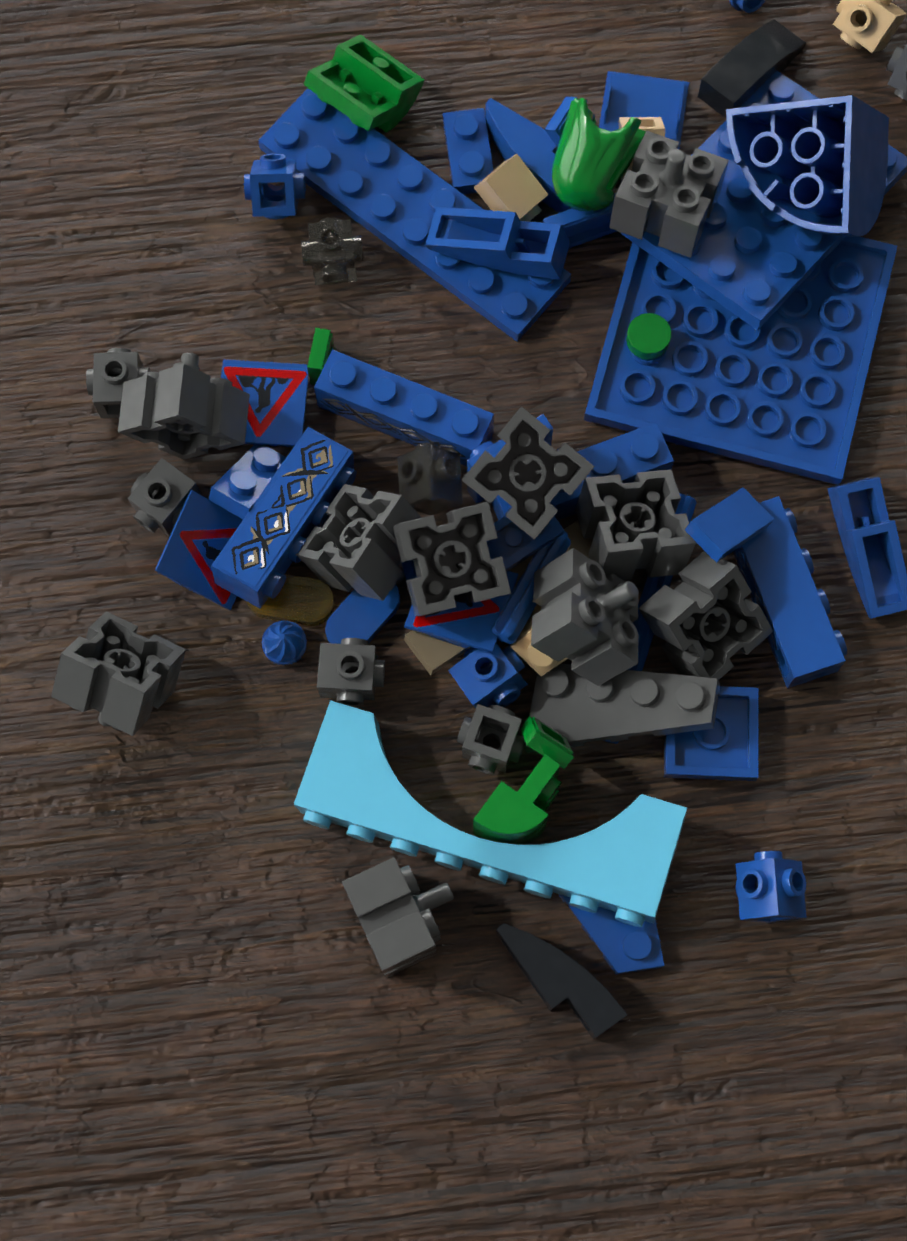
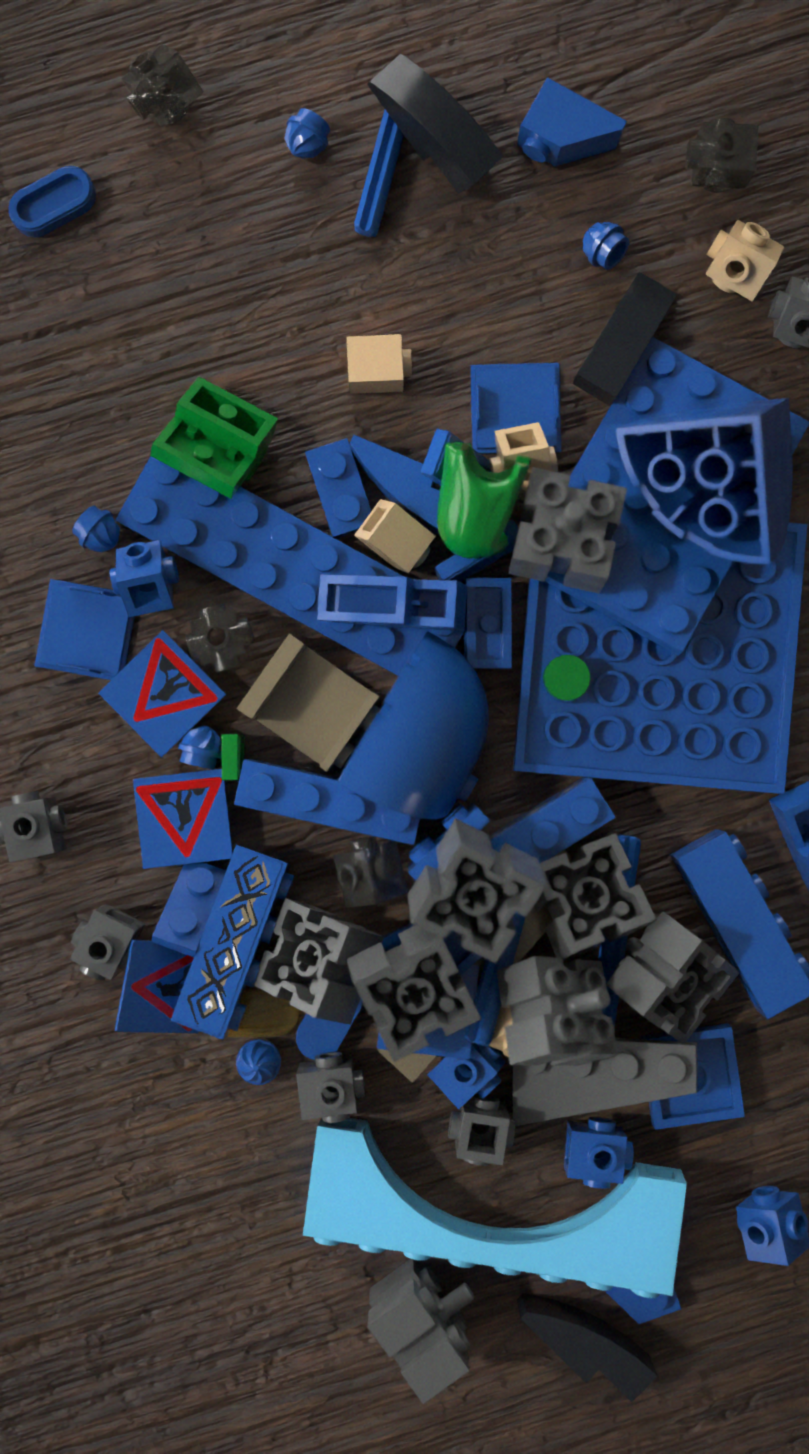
camera: 10 degrees left, 15 degrees up
(118, 673) = (102, 1140): dark grey brick -> none
(184, 410) = (105, 856): dark grey brick -> none
(208, 232) = (84, 631): none -> blue piece
(239, 145) = (96, 530): none -> blue plate
(268, 292) = (162, 693): none -> blue piece
(291, 345) = (201, 747): none -> blue plate
(401, 324) = (310, 703): none -> dark tan panel
(505, 347) = (424, 737): none -> blue brick
(519, 815) = (517, 1207): green brick -> none
(523, 51) = (377, 363): none -> tan brick
(547, 741) = (538, 1136): green tile -> none
(583, 284) = (488, 623): none -> blue plate
(589, 777) = (589, 1138): none -> blue brick
(729, 524) = (685, 887): blue tile -> none

